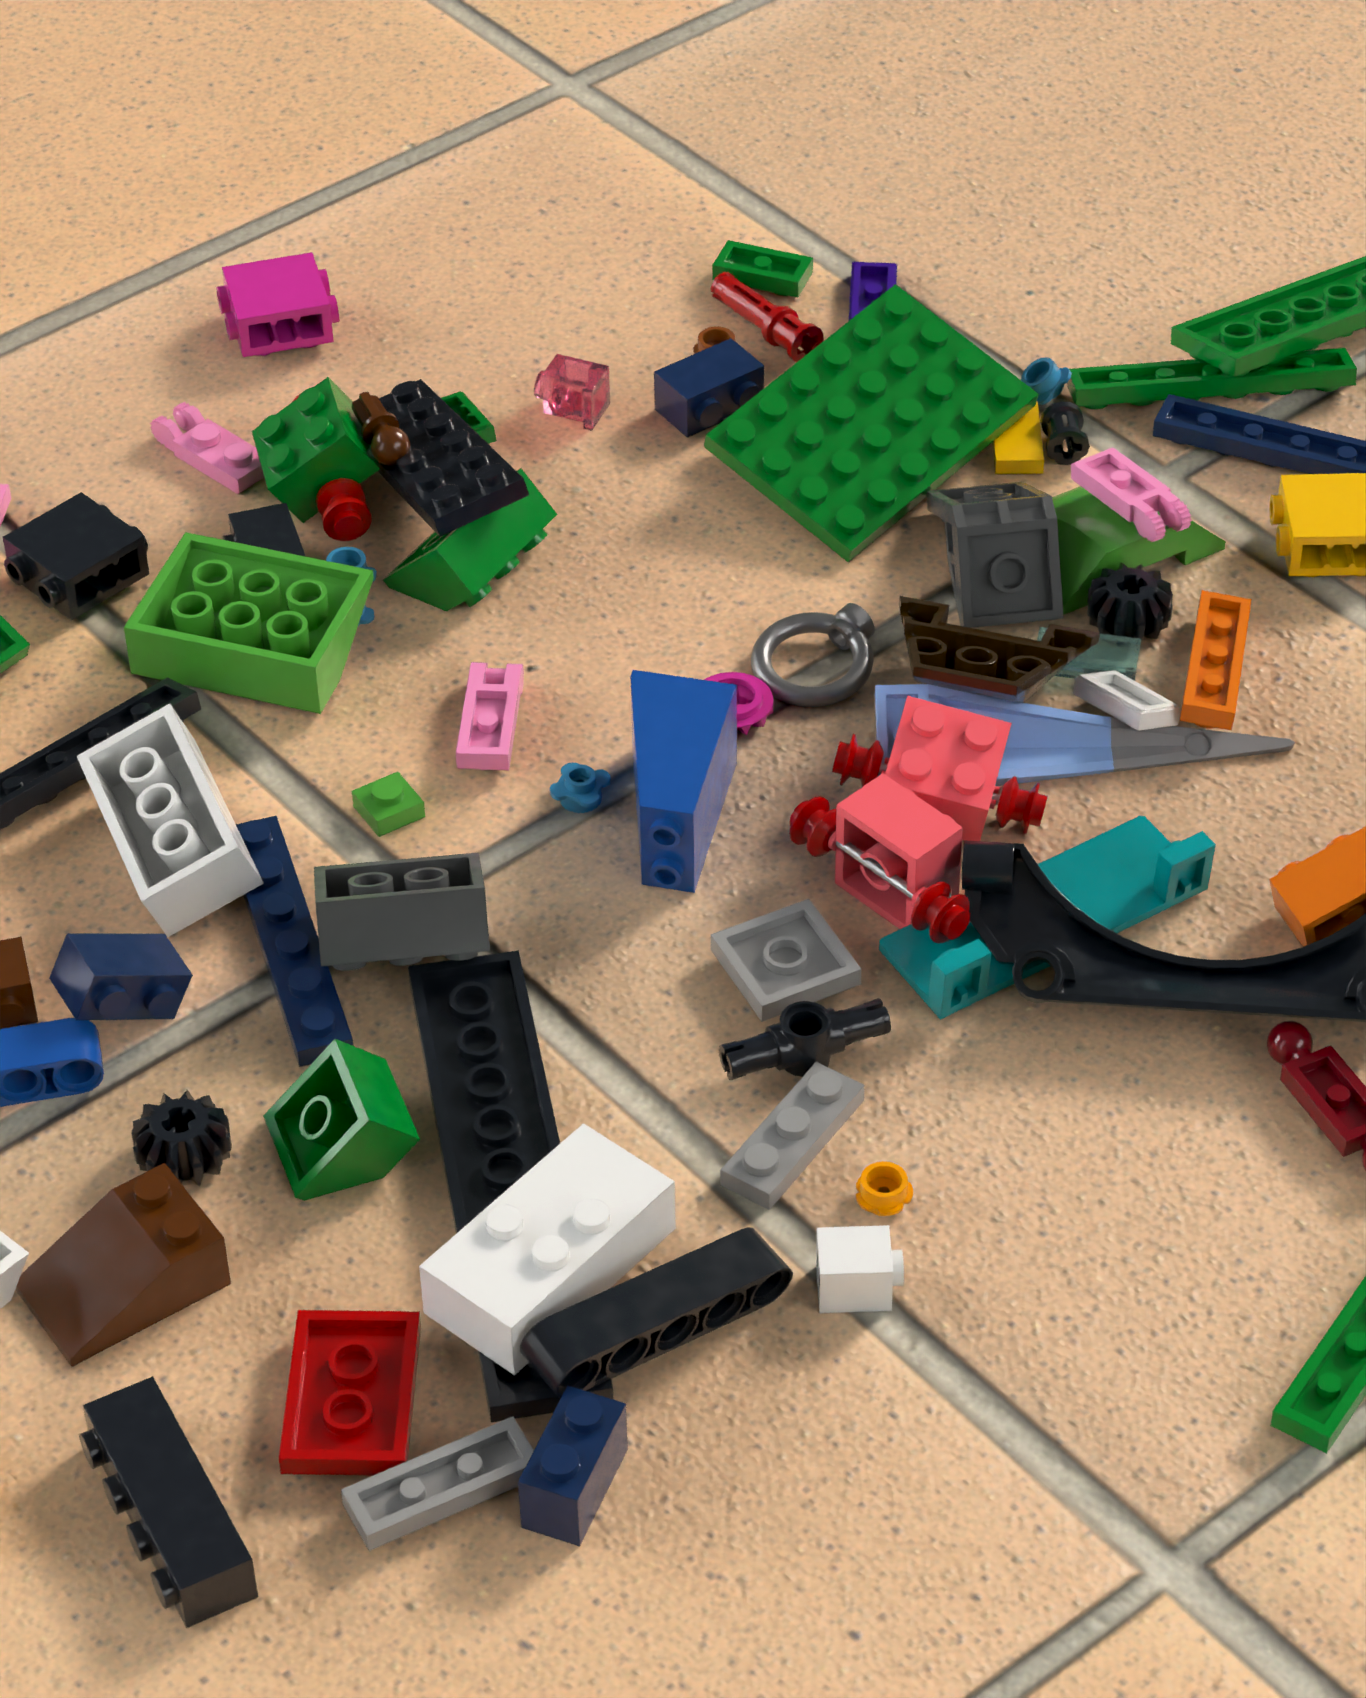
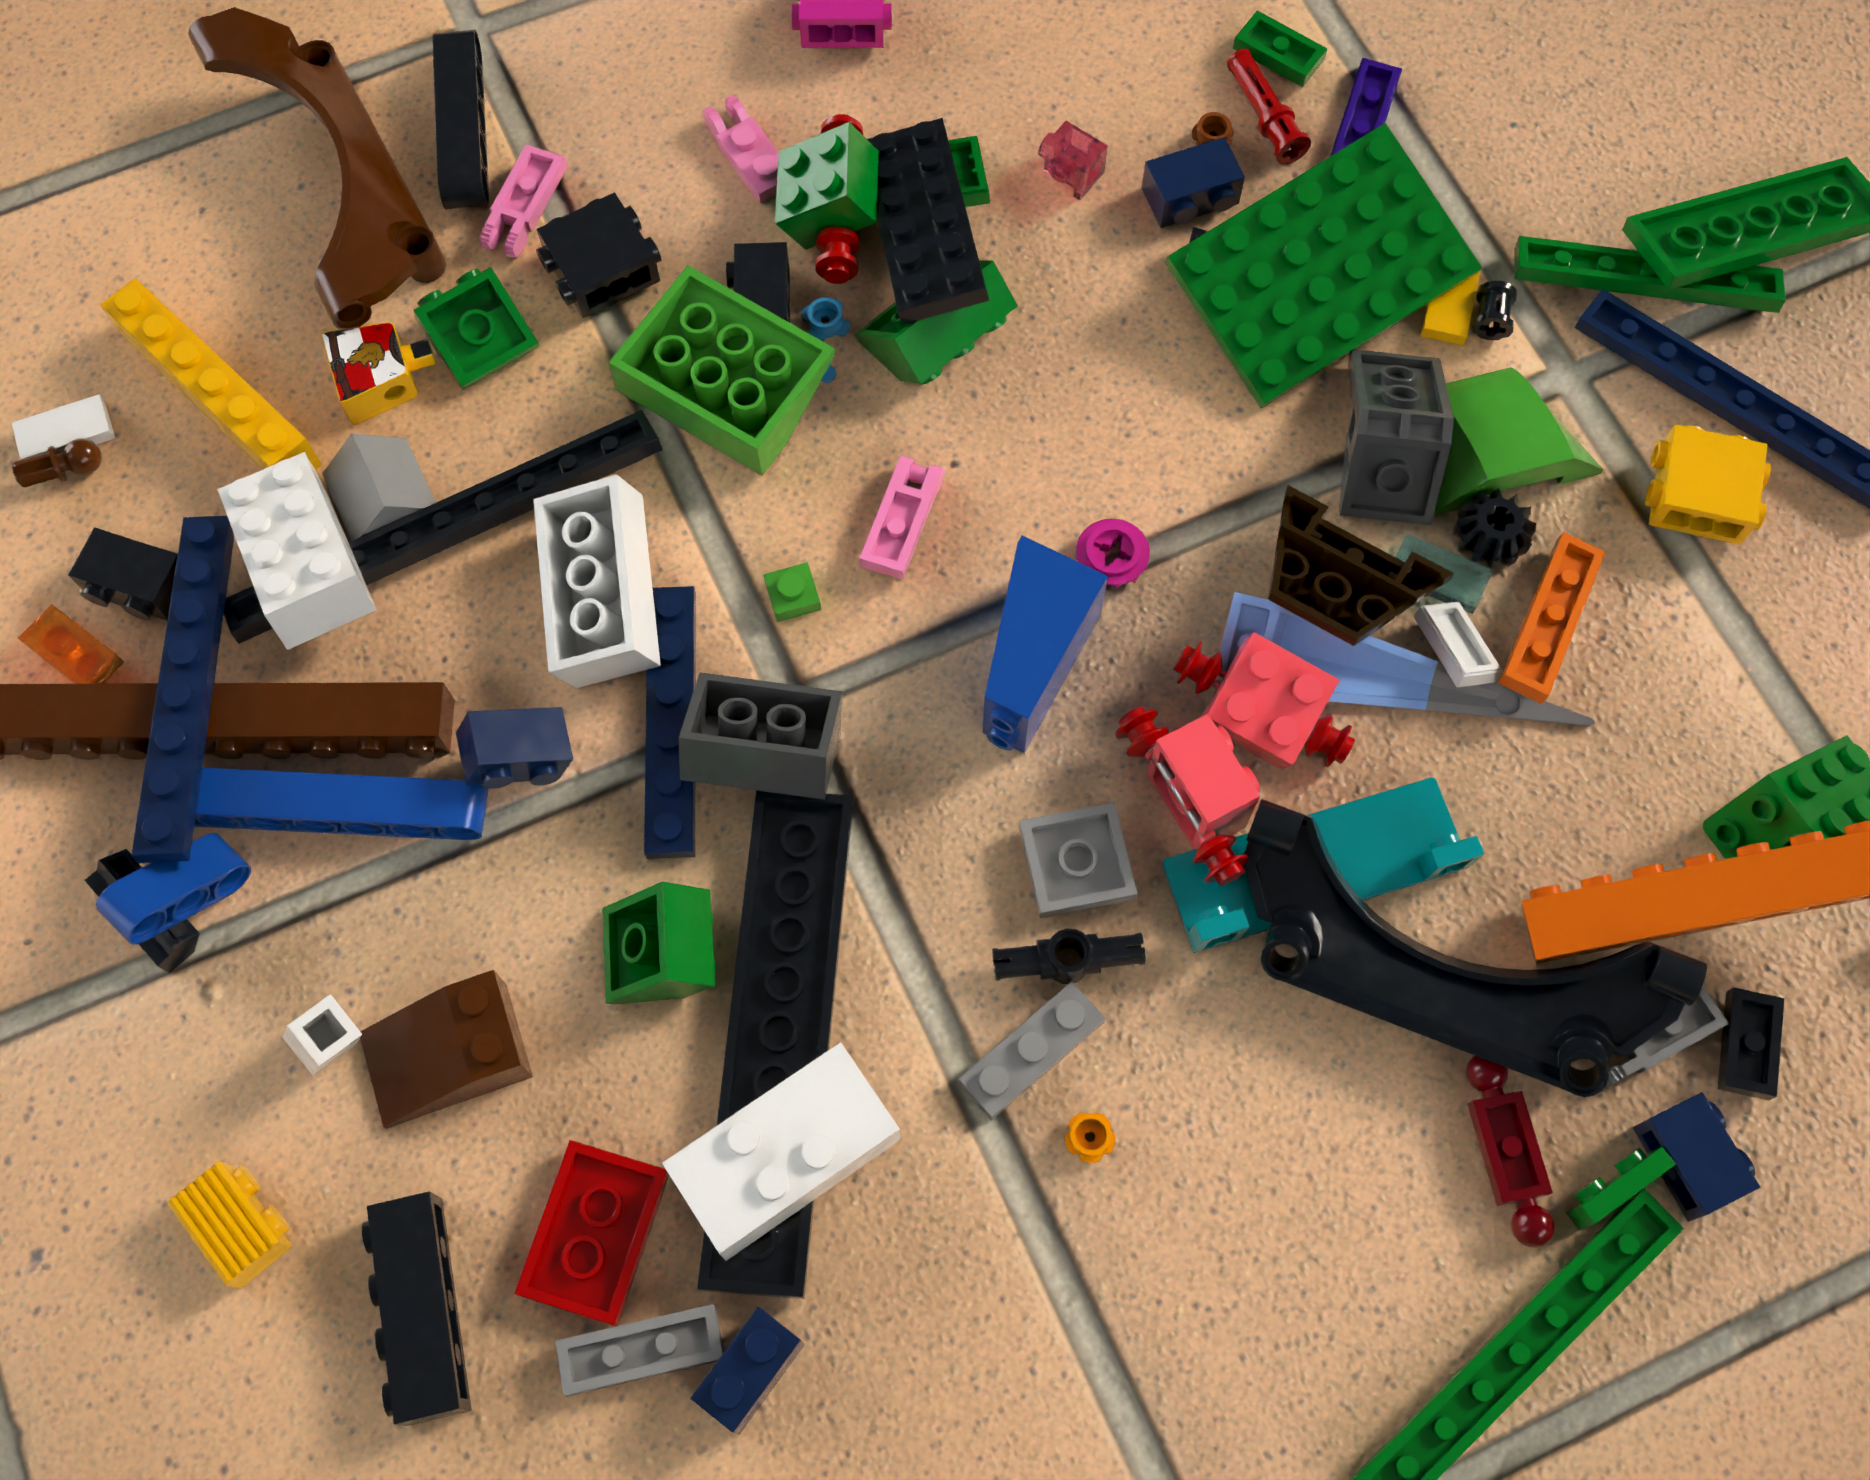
camera: 15 degrees right, 25 degrees up
(184, 1135) = (539, 932): black gear -> none
(380, 429) = (886, 203): reddish brown axle -> none
(580, 787) = (955, 628): dark azure plate -> none
(656, 1312) = (856, 1236): black beam -> none
(846, 629) = (1237, 497): flat silver piece -> none
(856, 1269) = (1042, 1223): white brick -> none
(1046, 379) = (1494, 242): dark azure plate -> none
(1131, 493) = (1529, 418): bright pink hinge -> none

